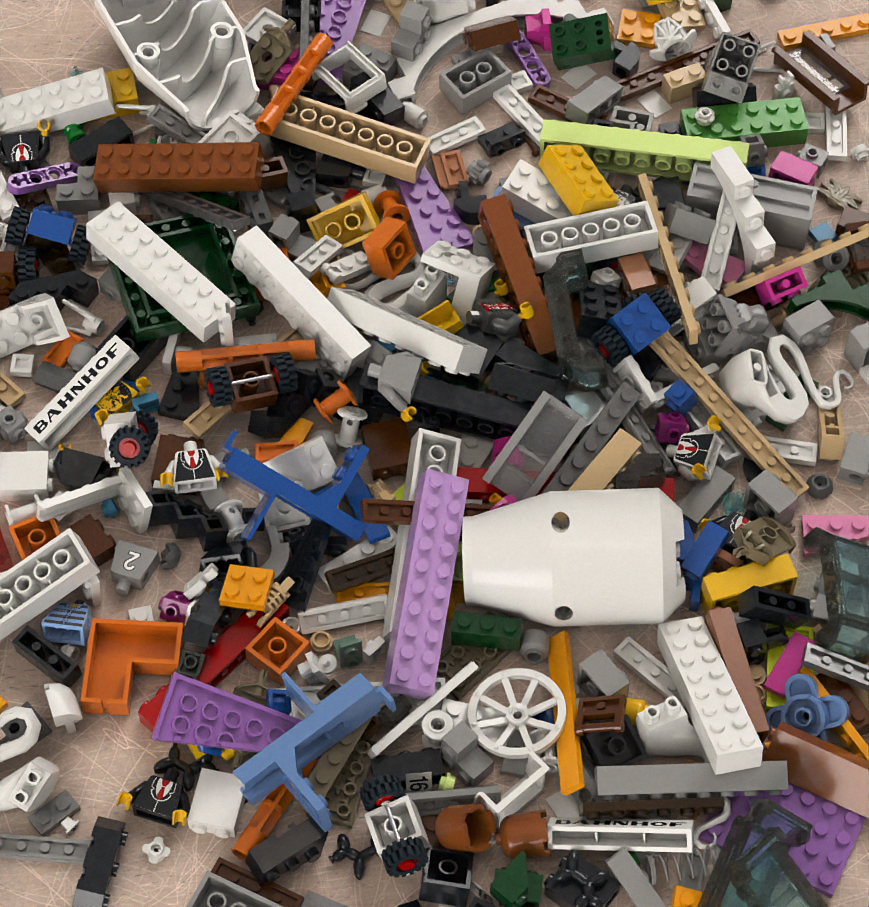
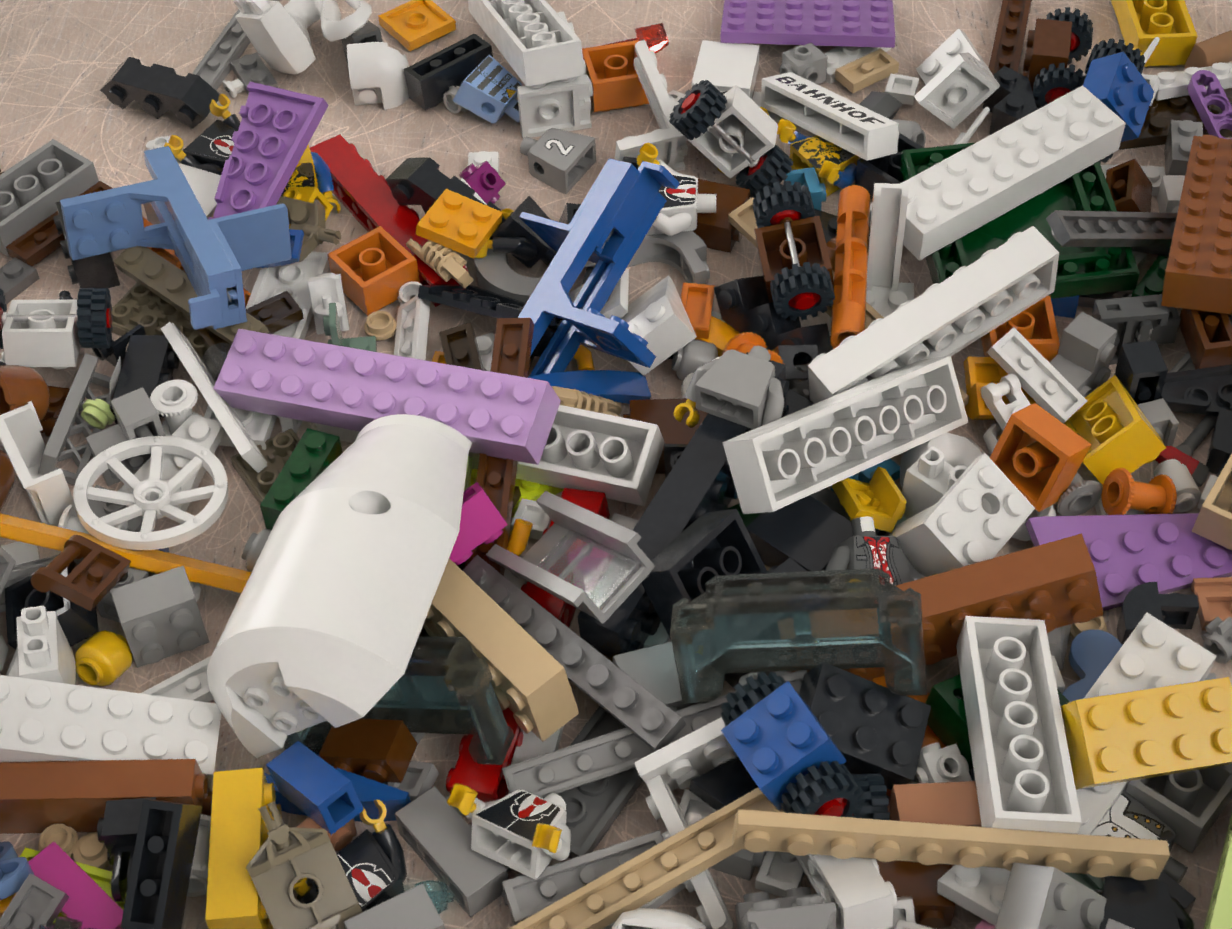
camera: 105 degrees right, 10 degrees down
(22, 513) = (668, 61): white hose -> none
(61, 349) = (935, 132): orange tile -> none
(96, 541) = (609, 123): reddish brown brick -> none
(119, 652) = (416, 125): orange piece -> none
(170, 556) = (561, 191): dark grey plate -> none
(191, 664) = (364, 173): pearl dark grey slope -> none
(198, 583) = (497, 197): white plate -> none
(670, 427) = (592, 804): magenta brick -> none
(680, 398) = (639, 819): blue brick -> none

